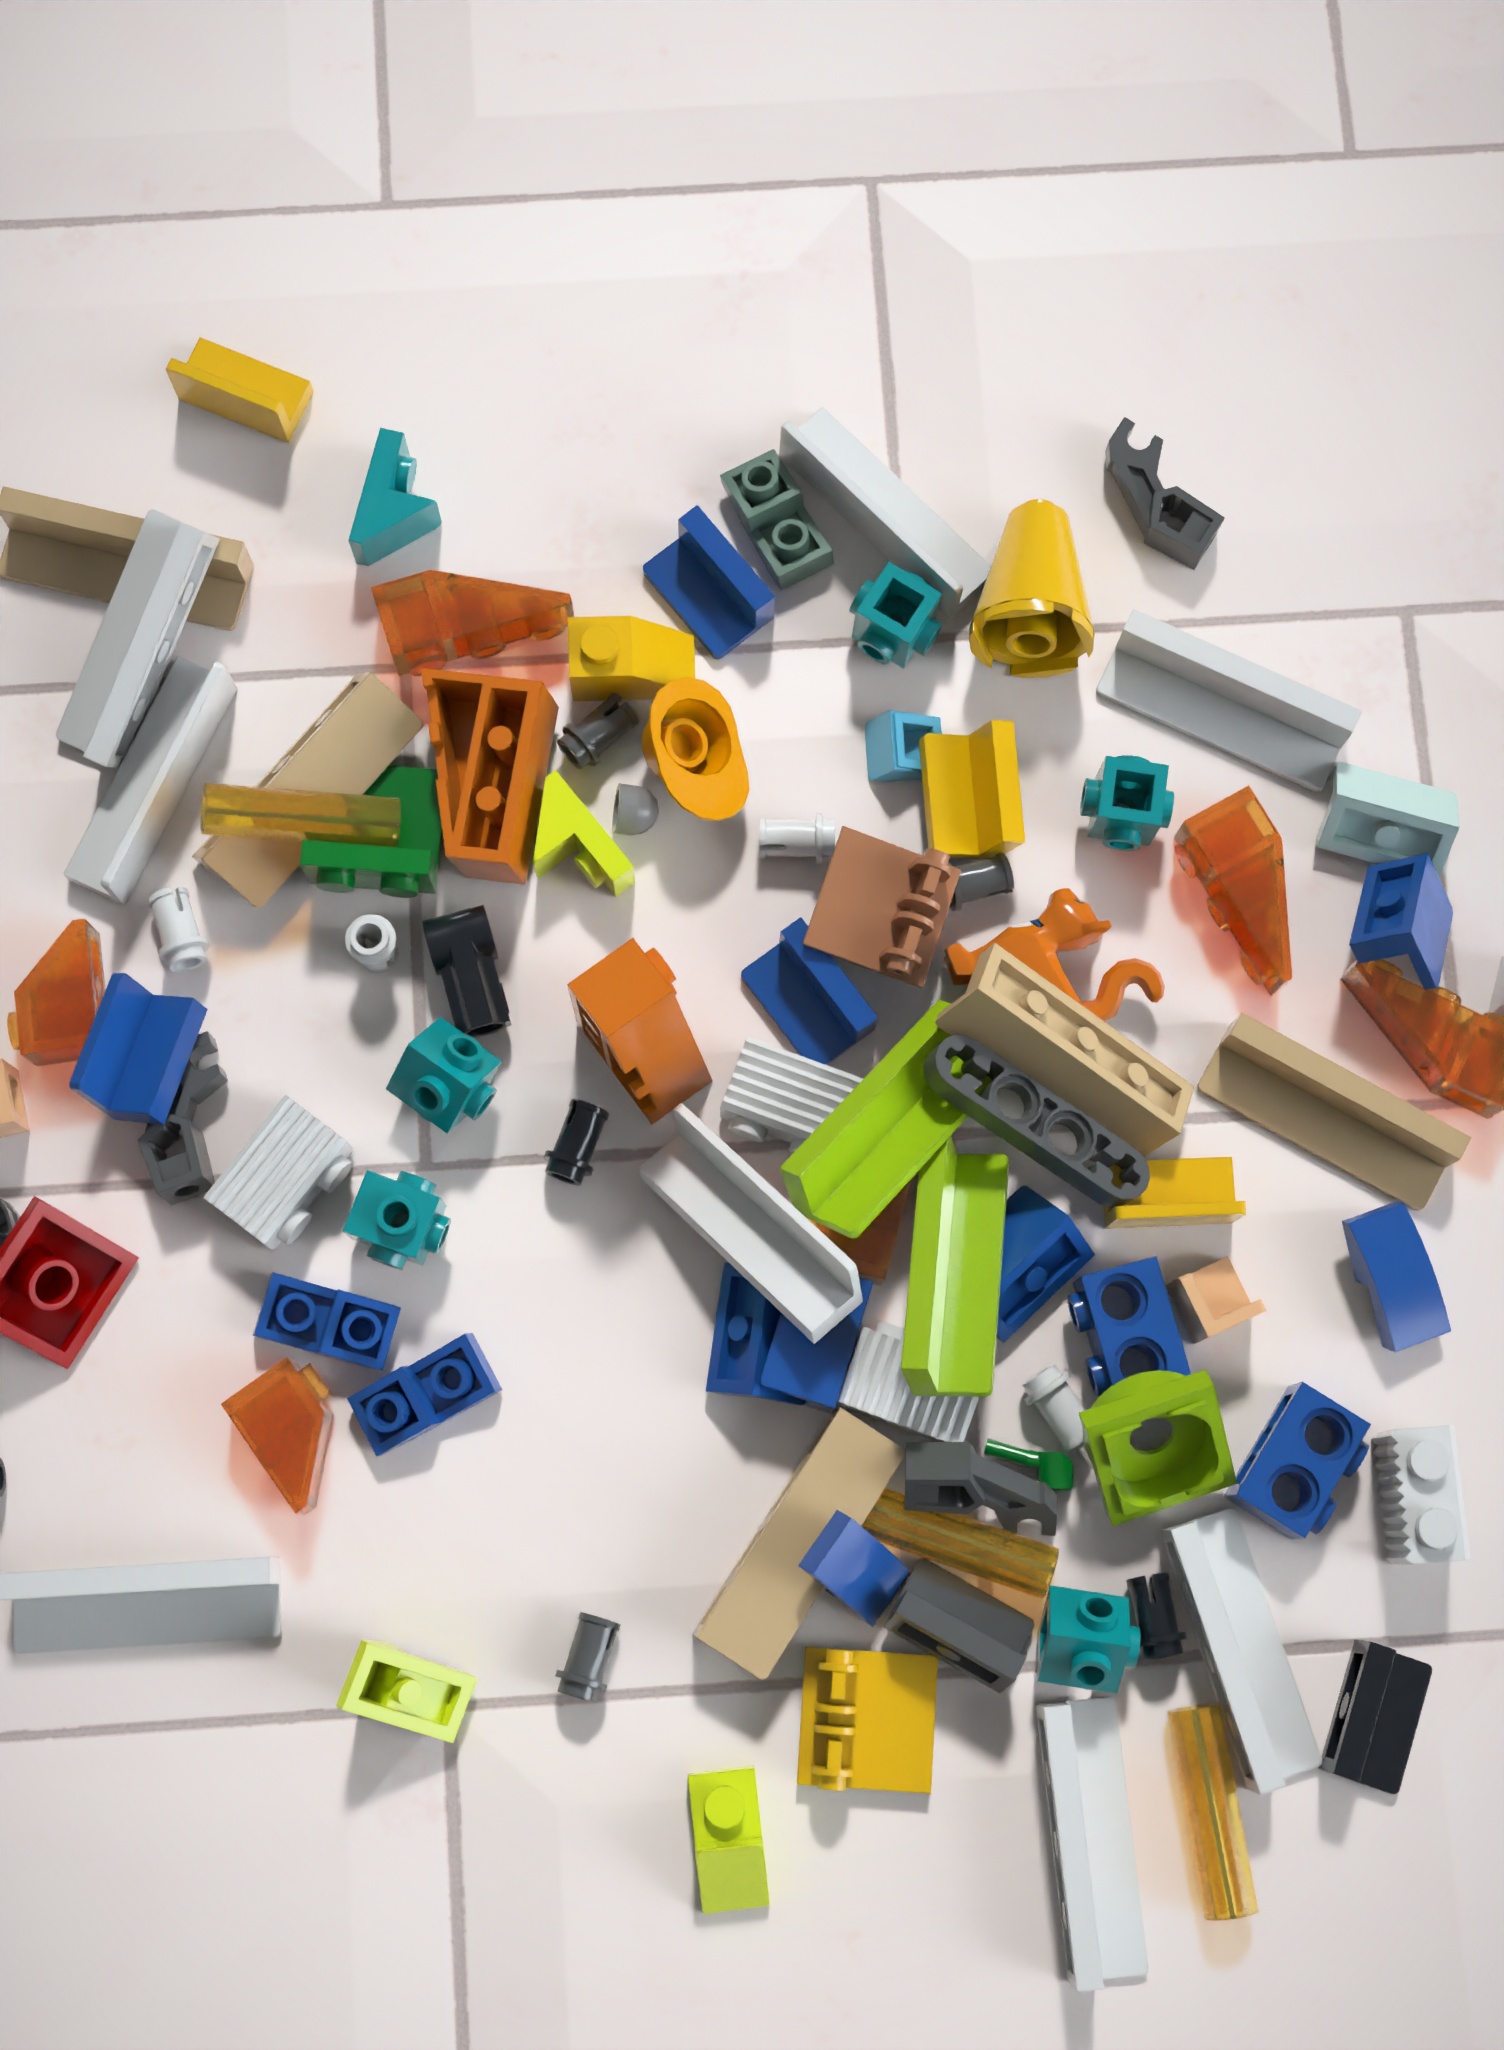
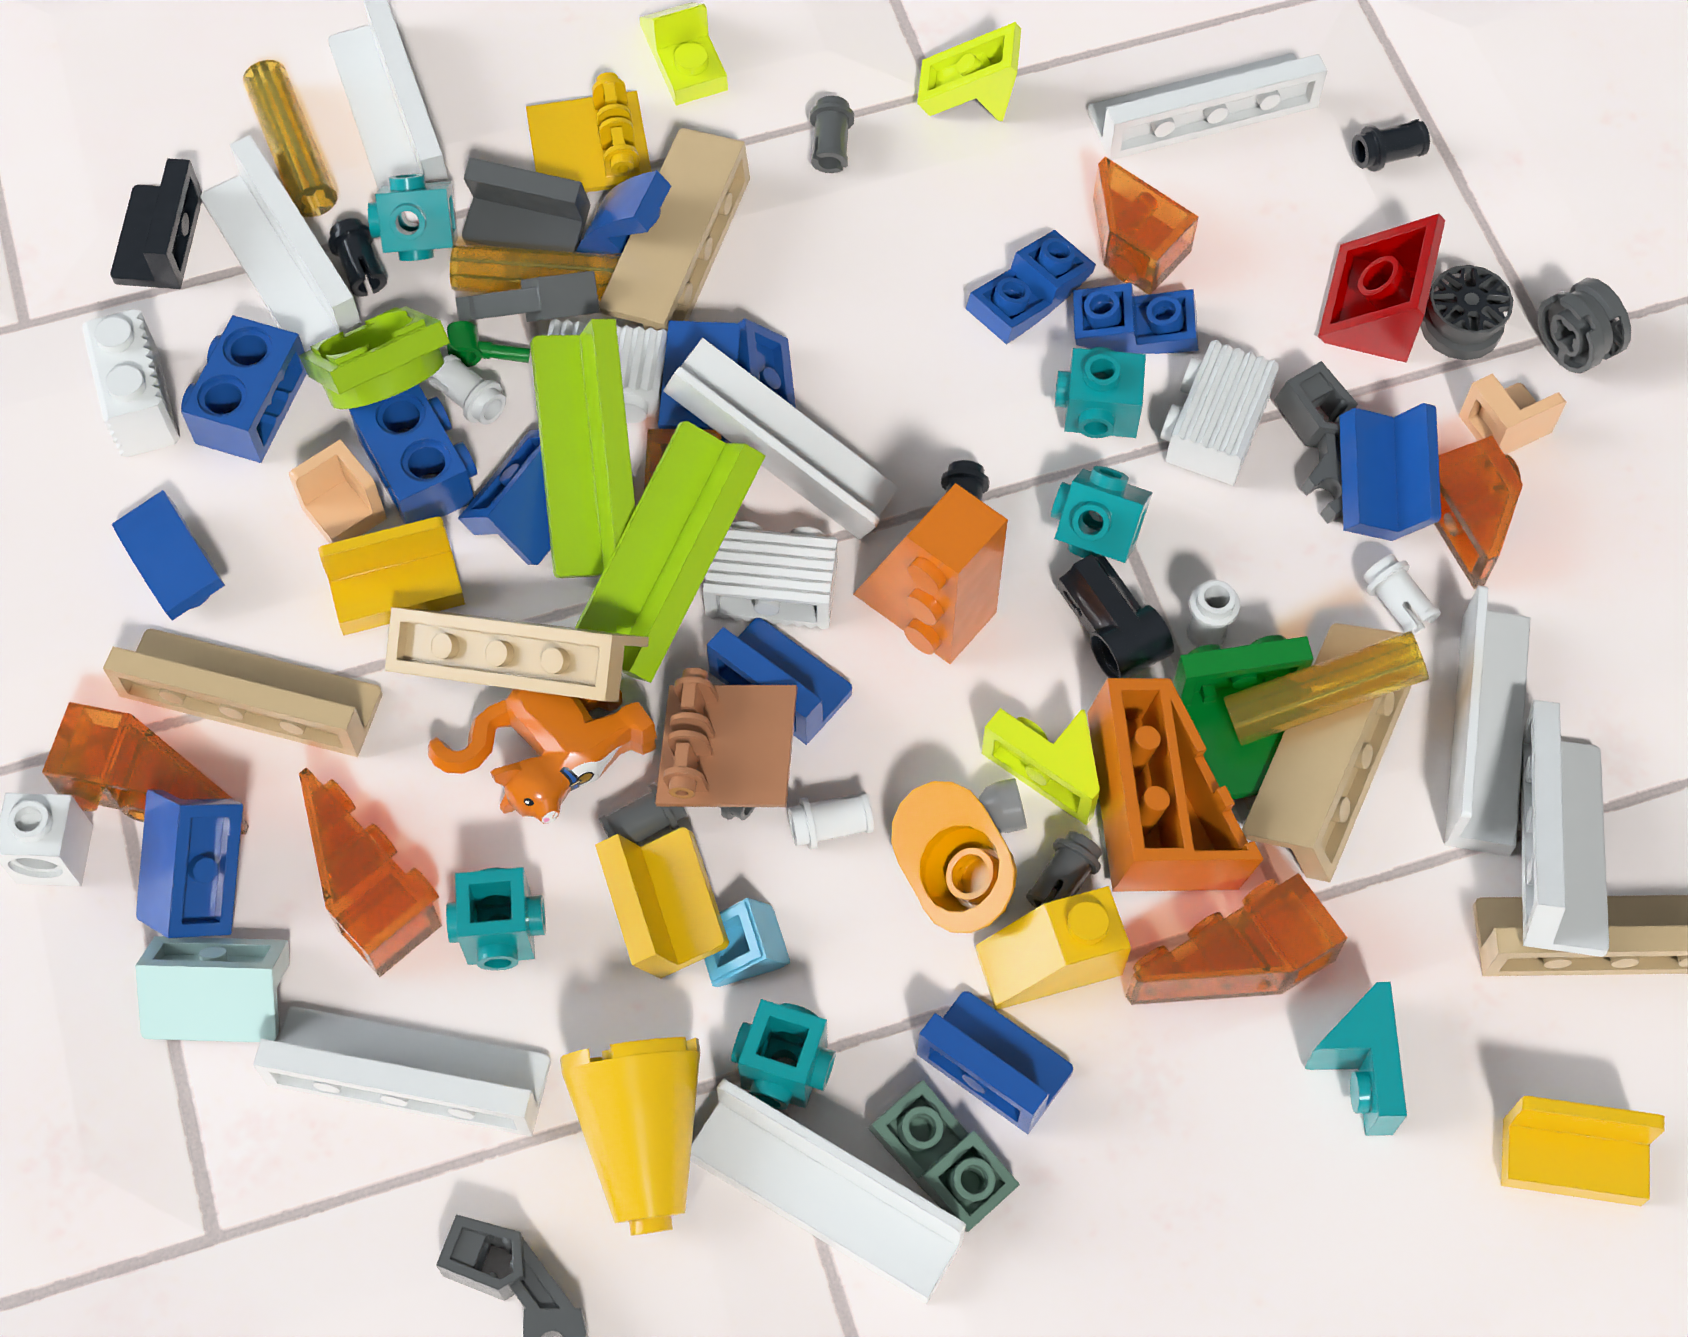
camera: 170 degrees right, 15 degrees down
(1032, 1131) = (533, 582): dark grey beam -> none

